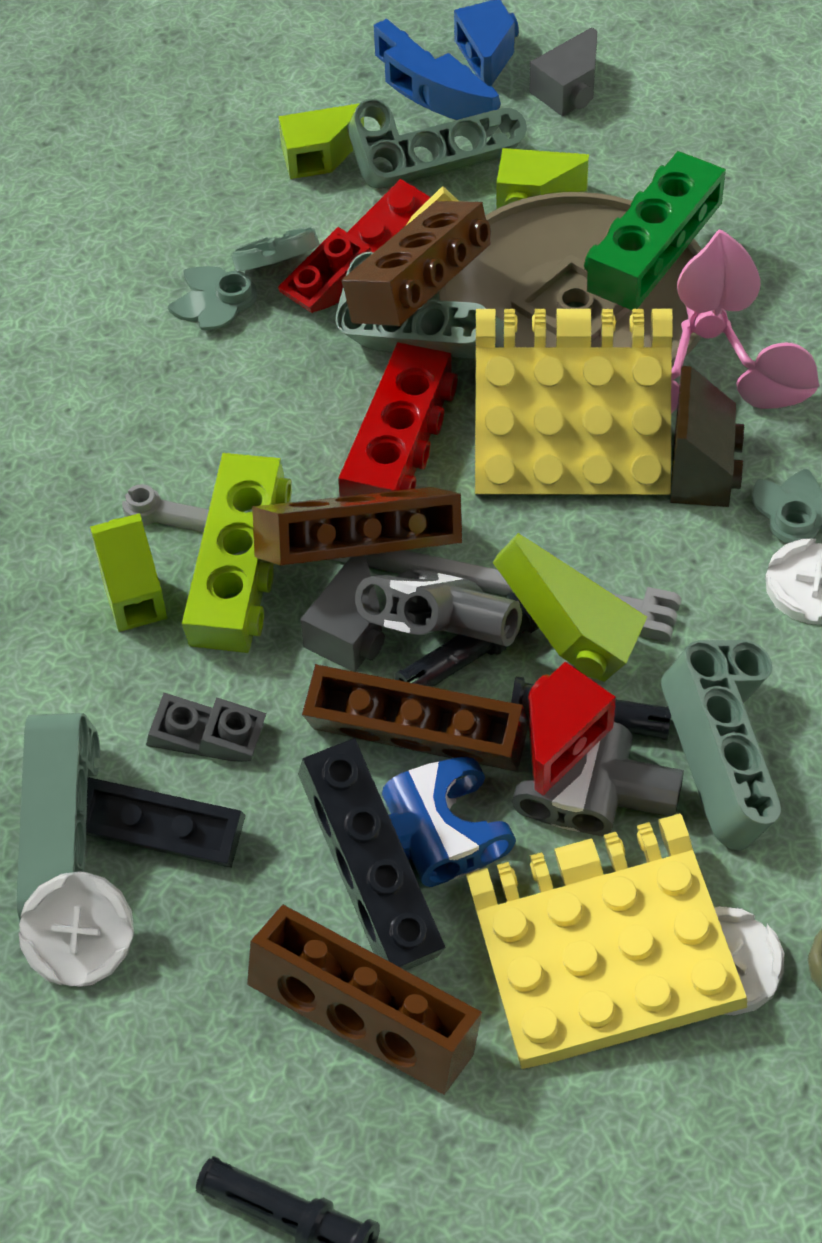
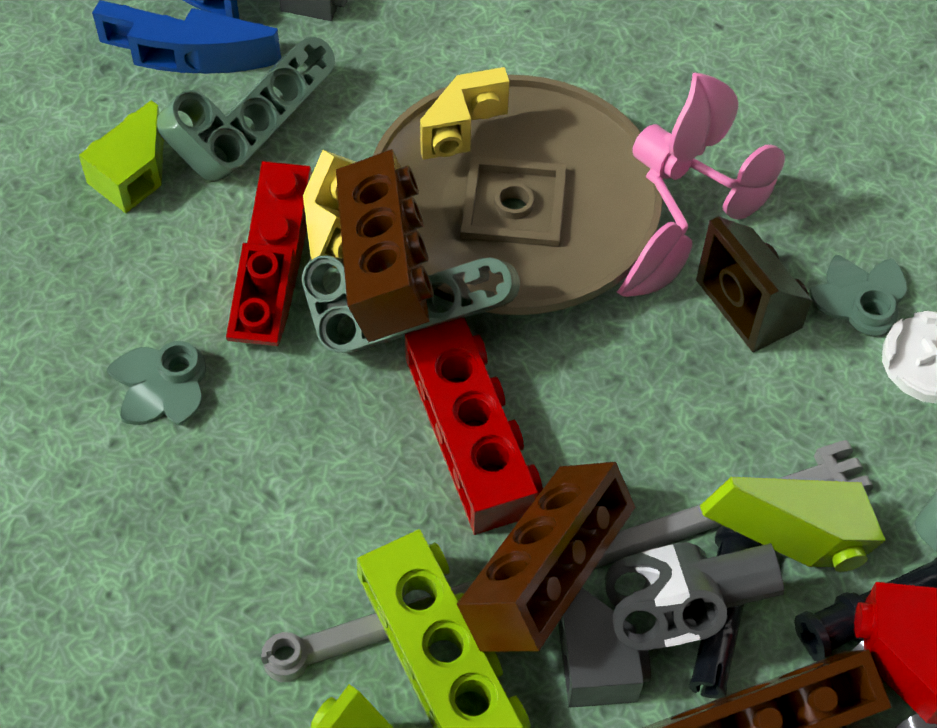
camera: 40 degrees left, 5 degrees up
(273, 250) = (195, 302): sand green tile -> none
(539, 173) = (373, 97): lime slope -> none
(557, 209) = (469, 97): none -> light yellow slope
(573, 411) = (630, 313): light yellow hinge -> none
(654, 230) = (551, 97): green brick -> none

